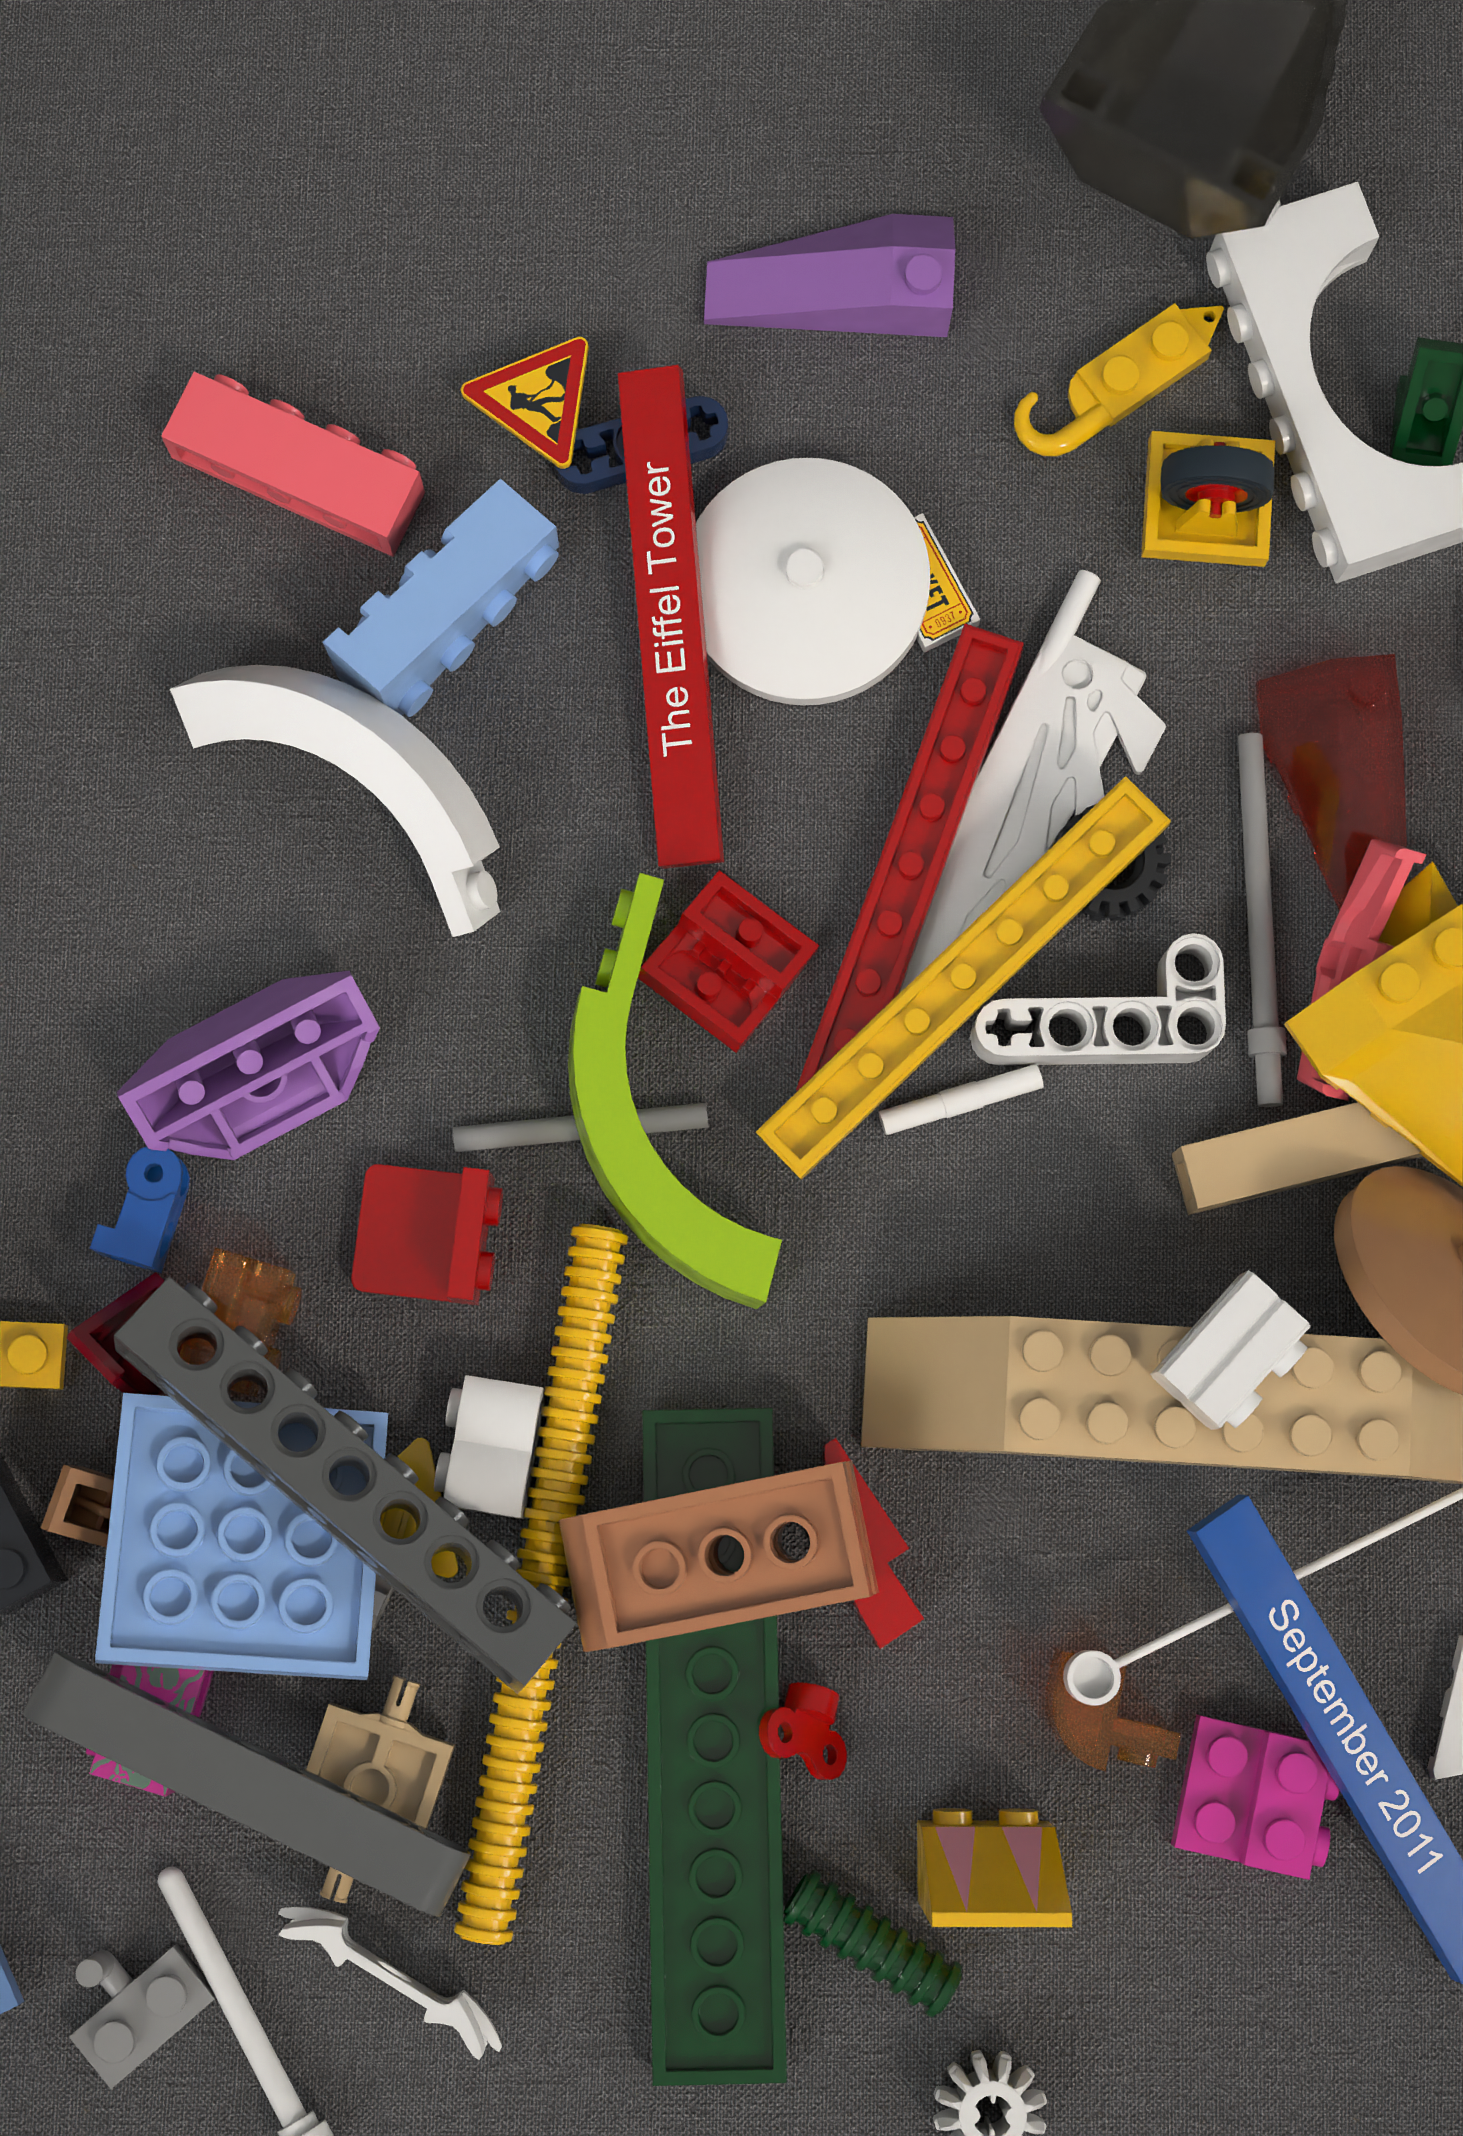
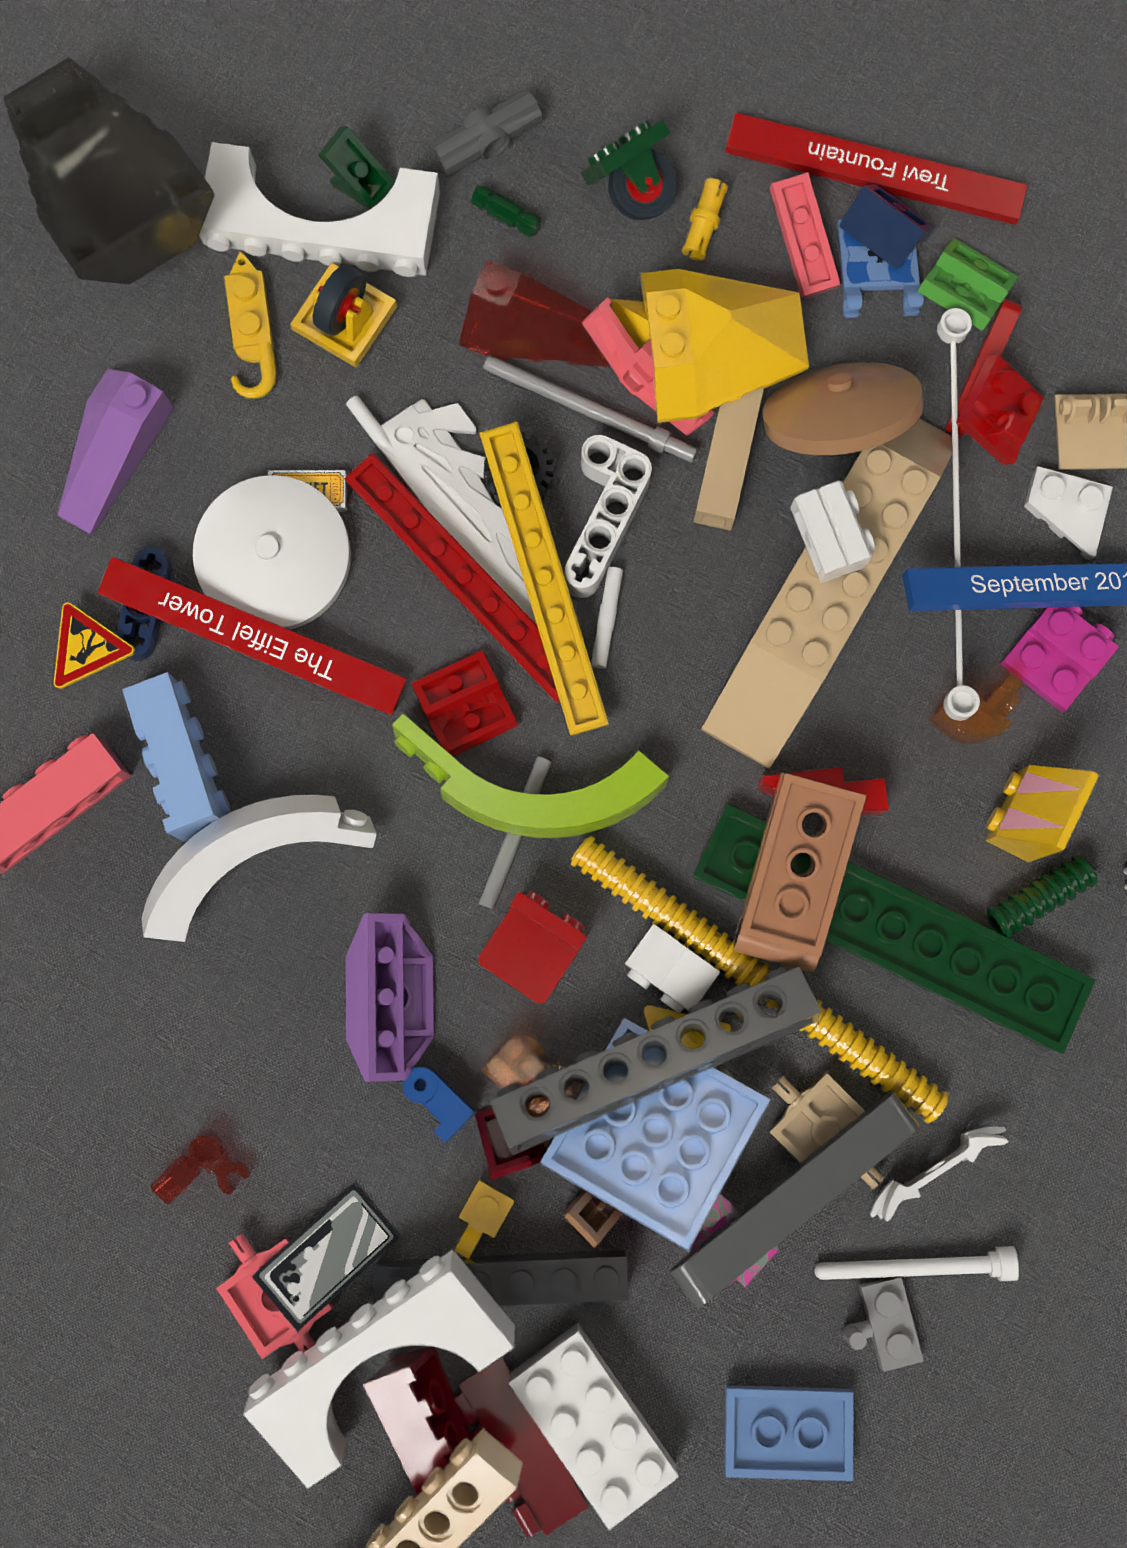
camera: 60 degrees left, 0 degrees up
(806, 1725) = (906, 872): red piece -> none

